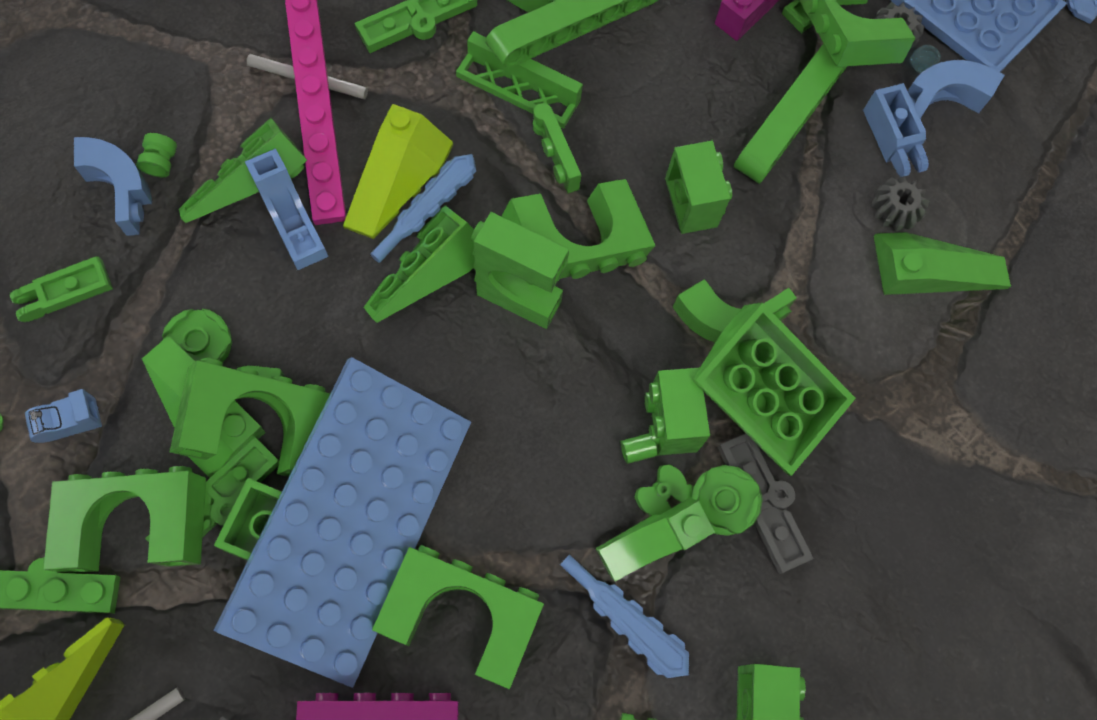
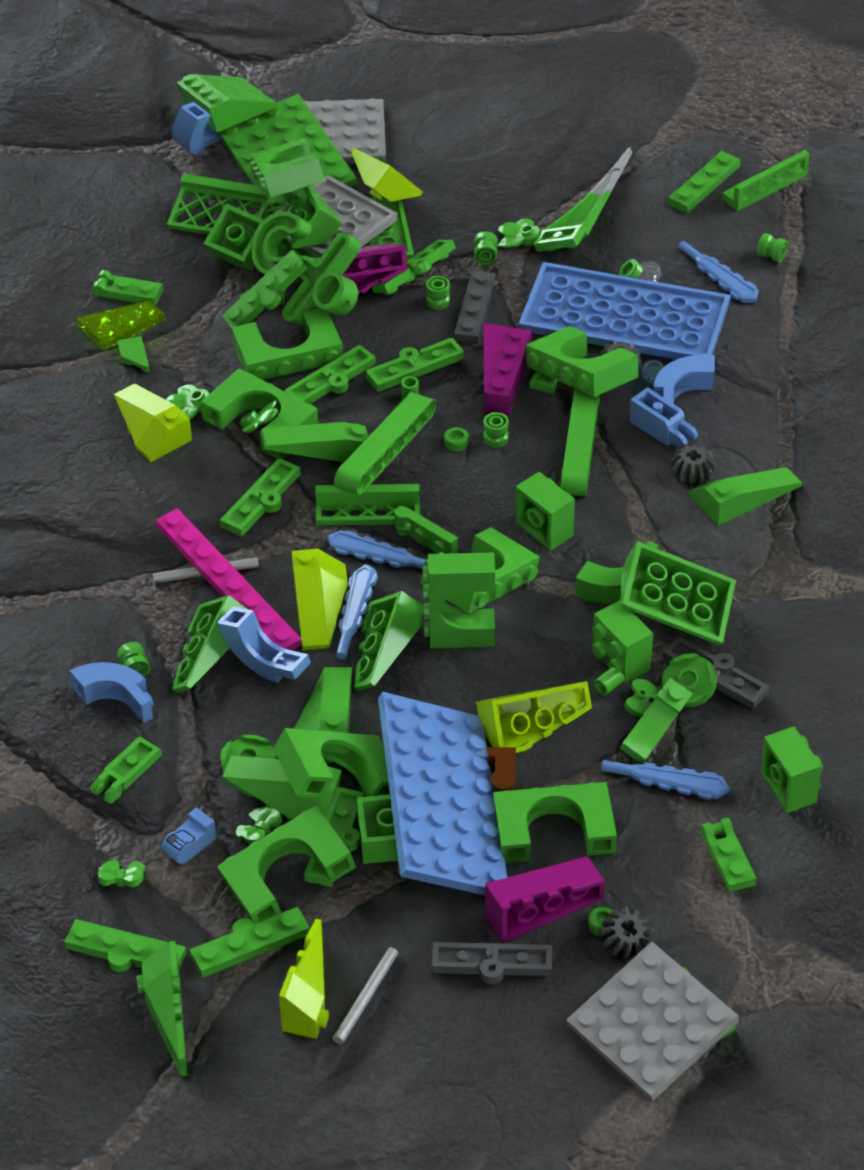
camera: 20 degrees left, 25 degrees down
(137, 446) = (264, 820): none -> bright green piece
(311, 329) = (329, 702): none -> bright green wedge
(441, 526) = (503, 764): none -> reddish brown leg
(486, 131) = (366, 547): none -> medium blue sword
(514, 449) = (532, 715): none -> lime wedge
(664, 41) = (456, 439): none -> bright green tile
(711, 52) = (496, 430): none -> bright green wheel

